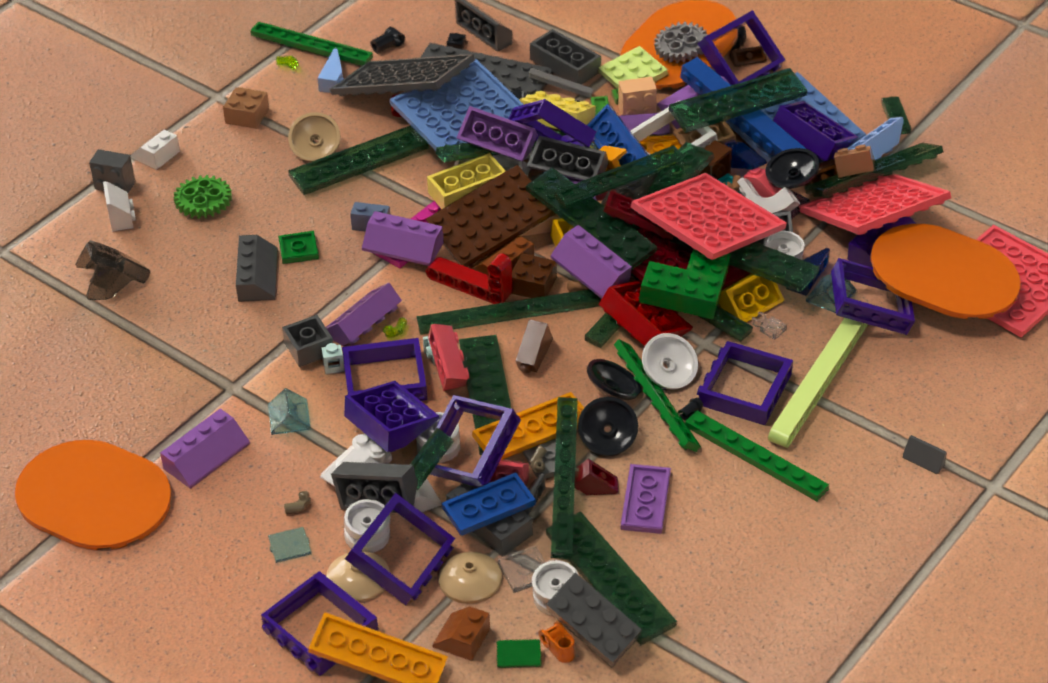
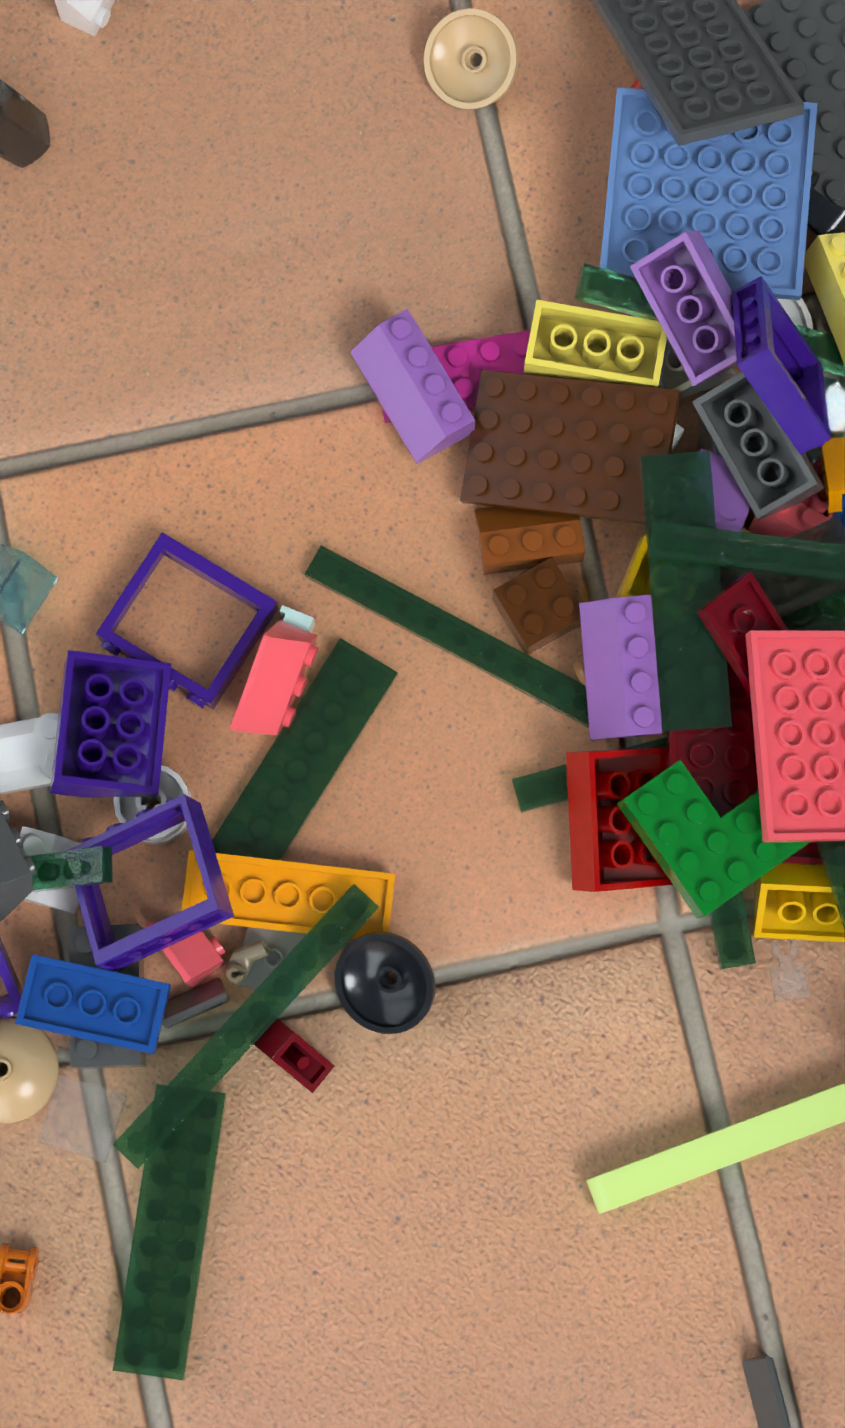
camera: 40 degrees right, 35 degrees up
(202, 196) = (226, 81): bright green gear -> none
(256, 269) = (182, 268): dark grey slope -> none
(298, 247) = (279, 266): green tile -> none
(306, 339) = (132, 478): dark grey brick -> none
(330, 354) = (139, 535): light aqua brick -> none
(357, 159) = (493, 149): clear green plate -> none
(362, 213) = (417, 293): sand blue brick -> none
(364, 314) = (248, 482): medium lavender slope -> none
(391, 332) = (275, 547): clear neon green arm -> none
(491, 288) = (465, 579): red beam -> none
(533, 346) = (420, 746): slope -> none
(548, 580) = (98, 1192): white wheel -> none
(593, 619) = (63, 1306): dark grey brick -> none
(613, 379) = (484, 906): black dish -> none
(645, 498) = (336, 1136): medium lavender tile -> none
(658, 397) = (509, 973): green plate -> none
(678, 357) = (576, 954): white dish -> none
(693, 405) = (535, 1035): black pin -> none
(738, 407) = (637, 994): dark purple window -> none
(757, 456) = (548, 1191): green plate -> none

